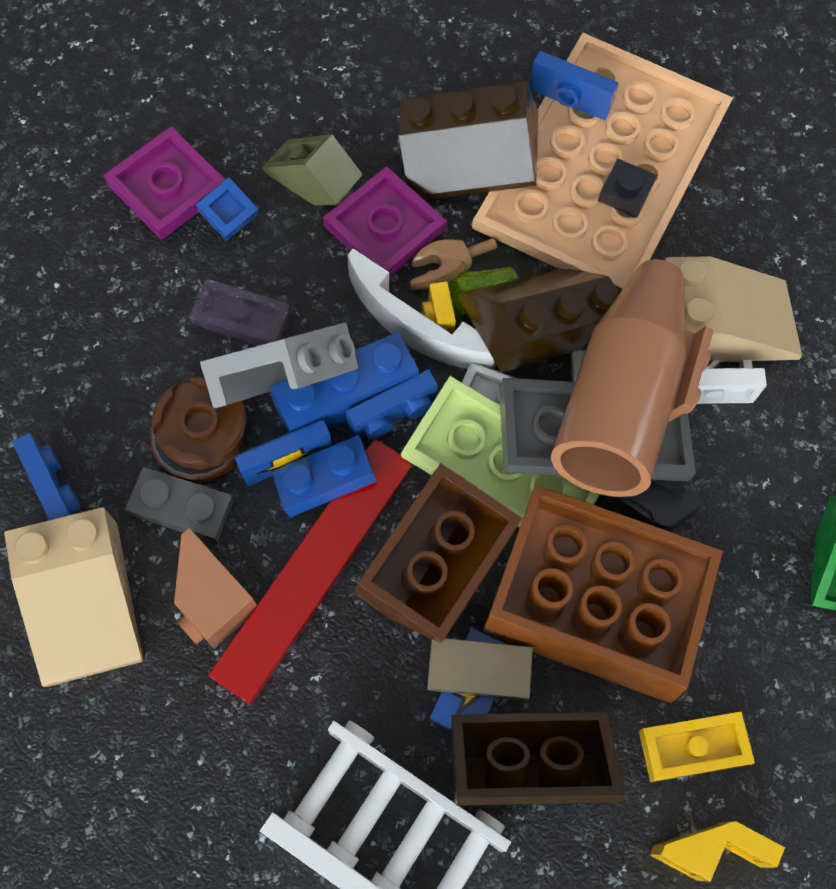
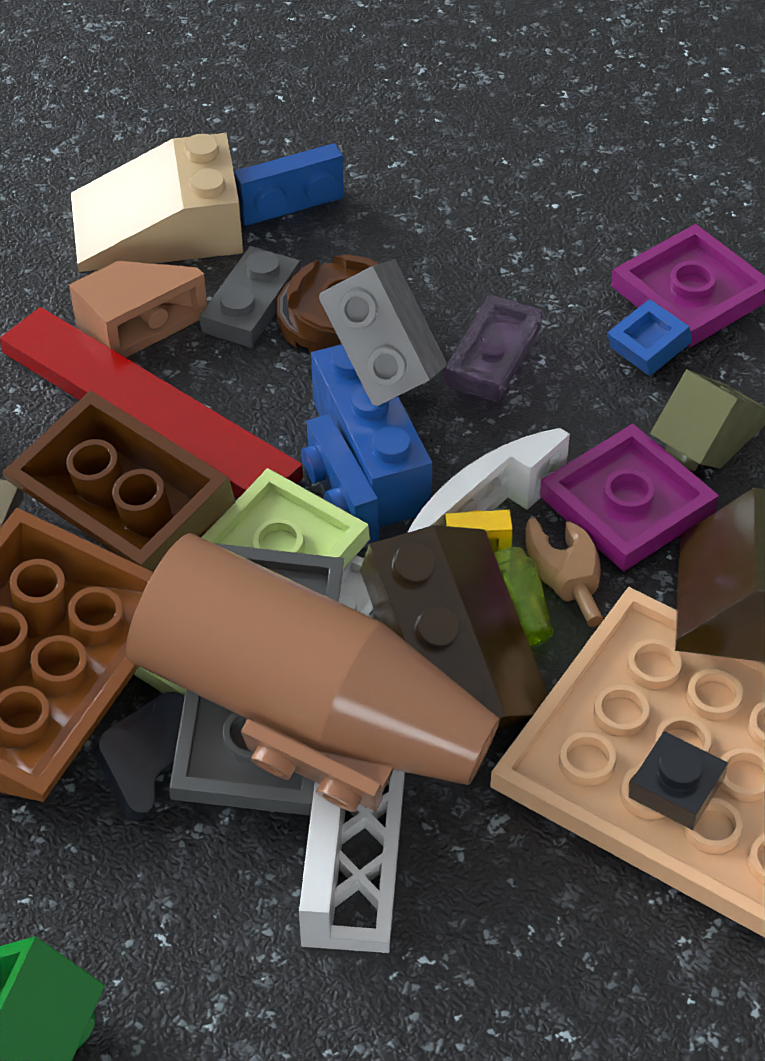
camera: 100 degrees right, 20 degrees down
(262, 460) = (293, 371): blue tile -> none
(324, 476) = (257, 410): blue plate -> none
(742, 306) = (449, 906): tan slope -> none

